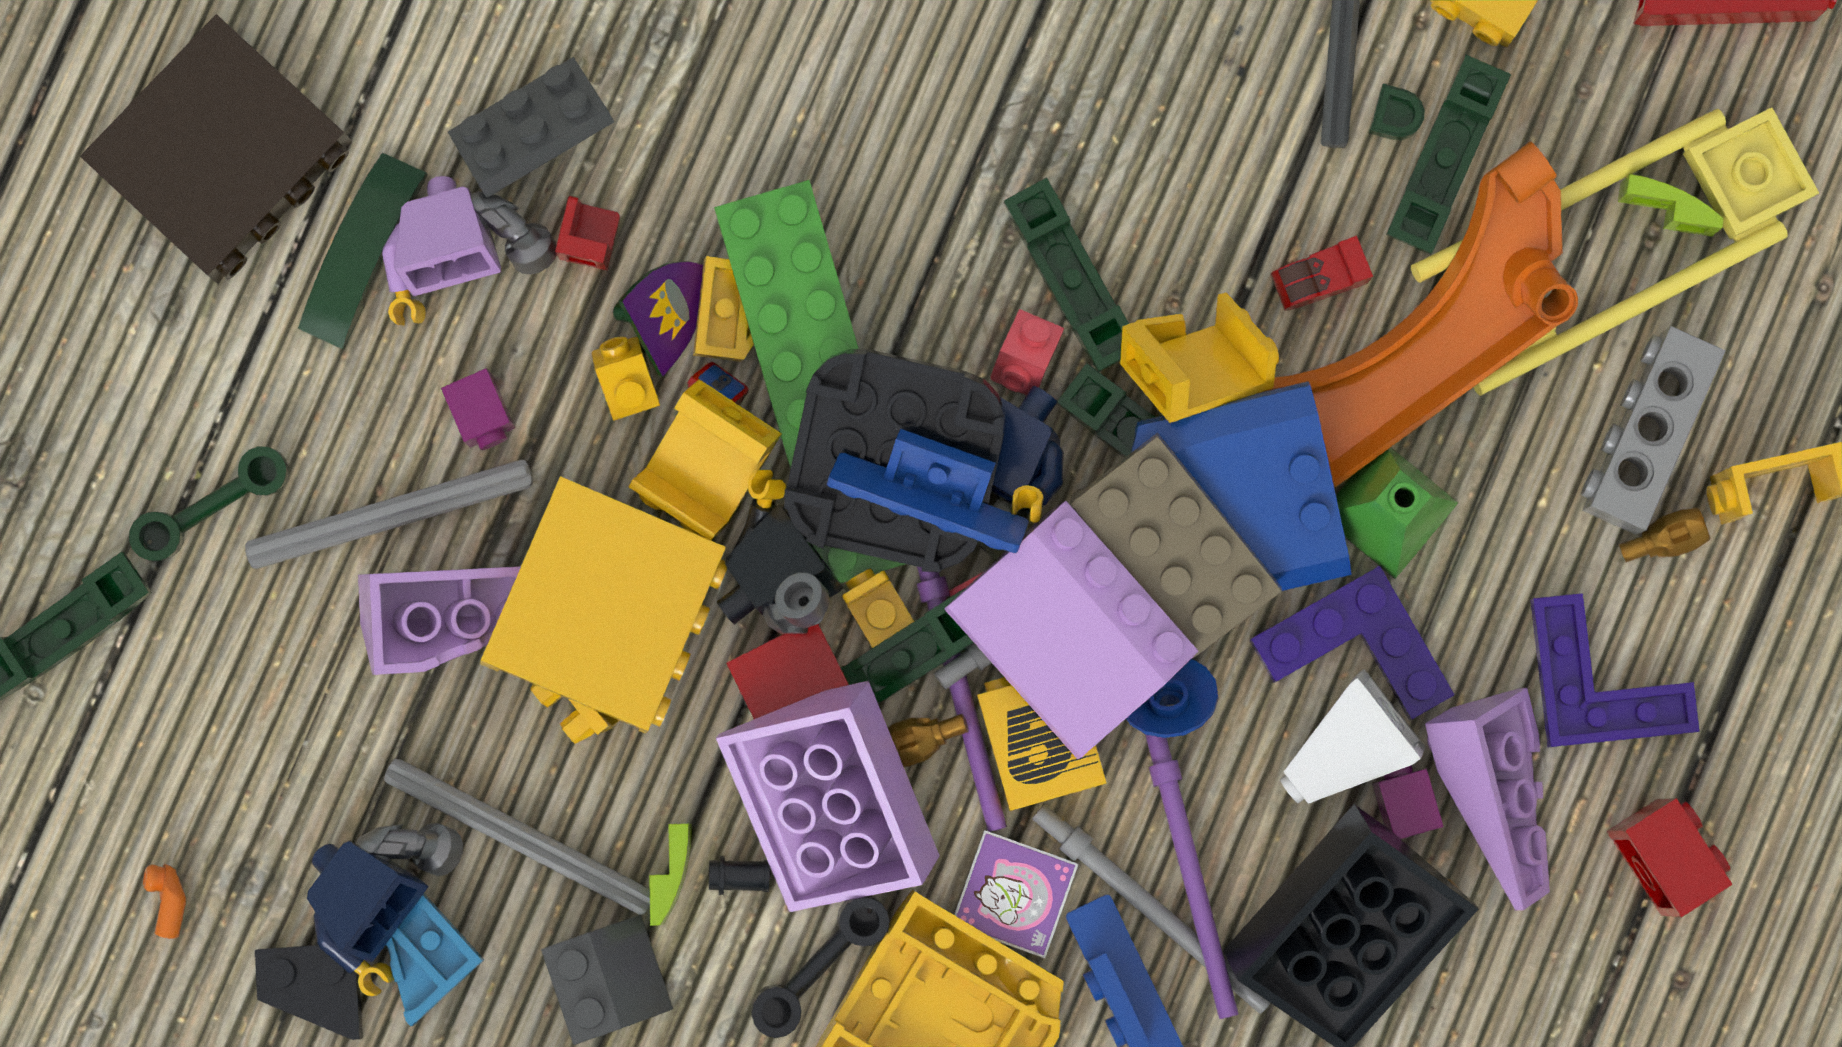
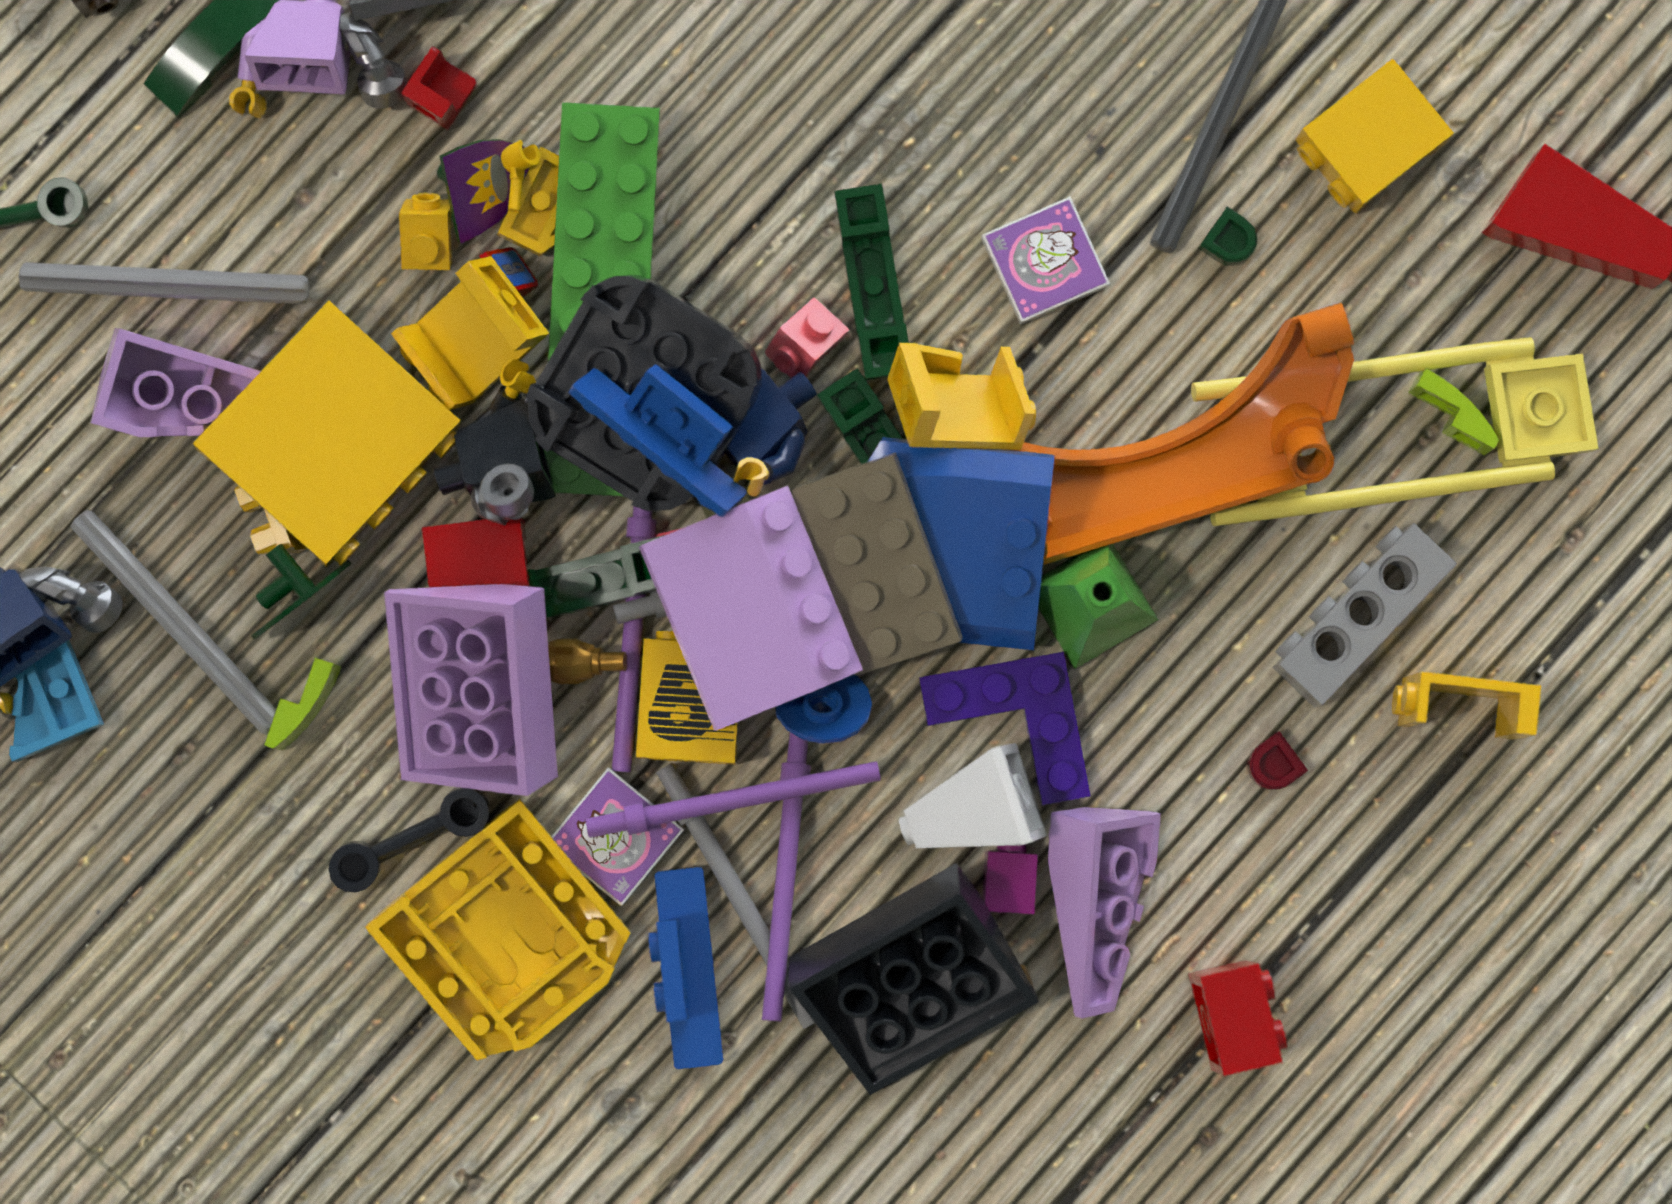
camera: 15 degrees right, 0 degrees up
(478, 410) = (280, 215): magenta brick -> none
(607, 979) = (208, 781): dark grey slope -> none
(620, 756) = (291, 579): none -> dark green shield
(688, 278) = (516, 162): none -> yellow hand
(738, 875) = (365, 729): black pin -> none
(876, 606) = (582, 524): yellow bracket -> none
(1032, 868) = (637, 817): none -> medium lavender bar
(1227, 196) = (1045, 260): none -> tile
(1322, 274) = (1106, 363): red leg -> none
(1447, 154) = (1263, 292): dark green slope -> none
(1572, 707) = (1196, 844): dark purple plate -> none
(1618, 601) = (1274, 763): none -> dark red tile
(1669, 536) = (1343, 719): pearl gold piece -> none

